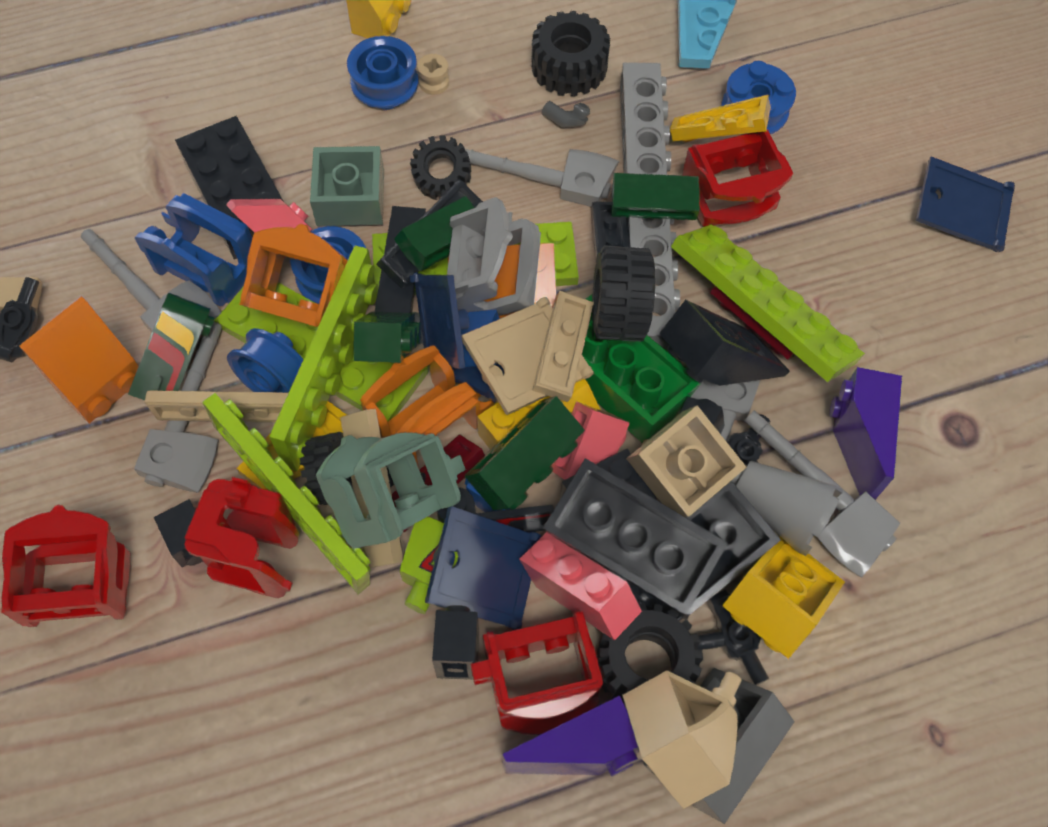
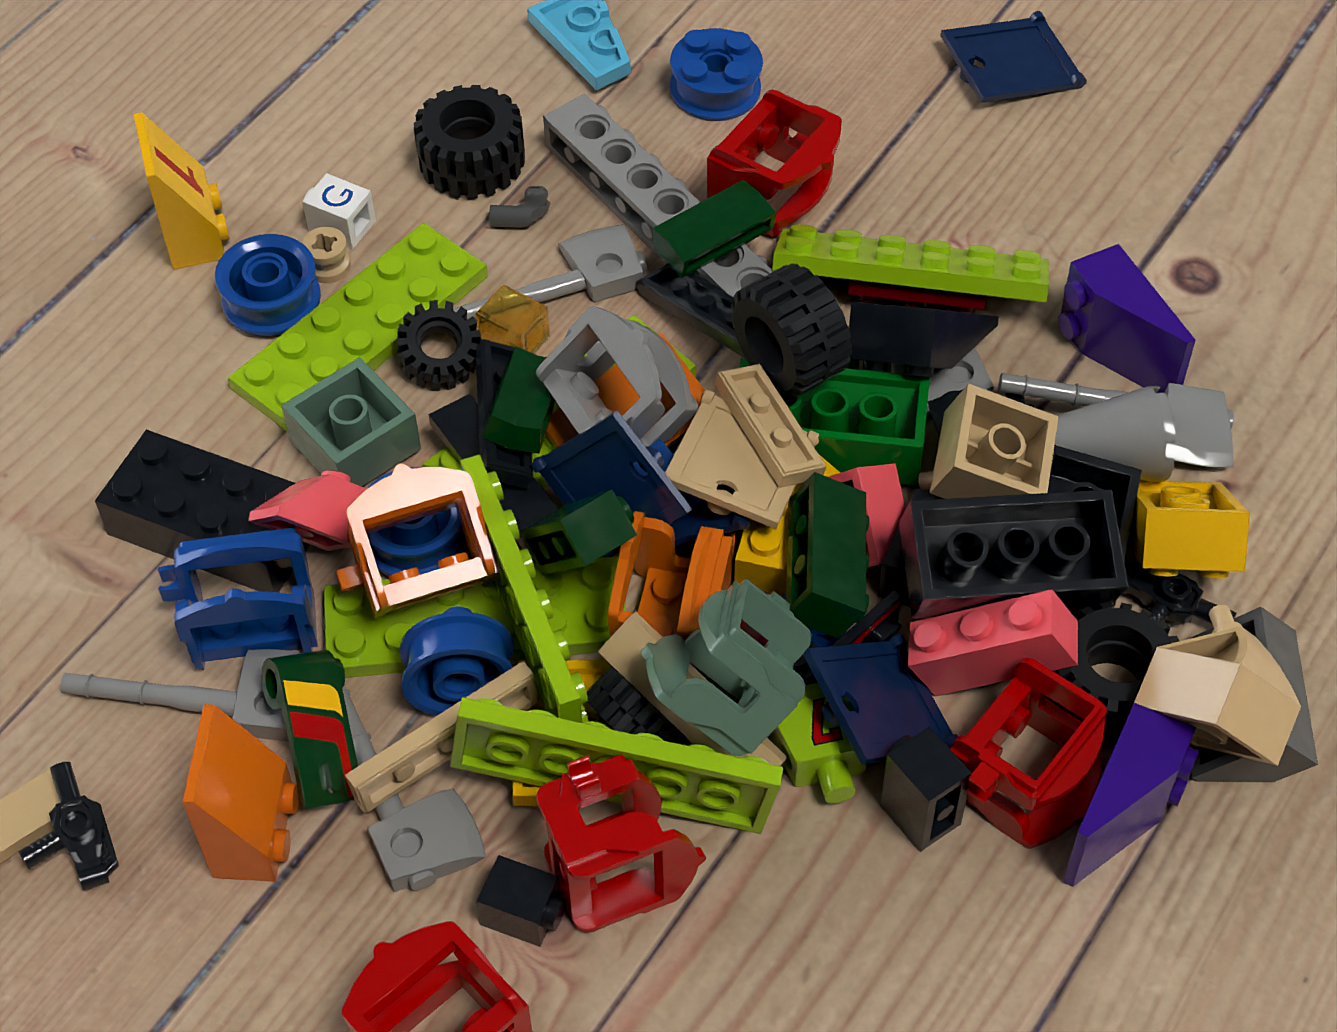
camera: 35 degrees left, 10 degrees down
(462, 52) = (340, 206): none -> white brick
(473, 118) = (358, 319): none -> lime plate
(495, 179) = (514, 320): none -> clear yellow panel
(725, 120) = (709, 112): yellow wing -> none

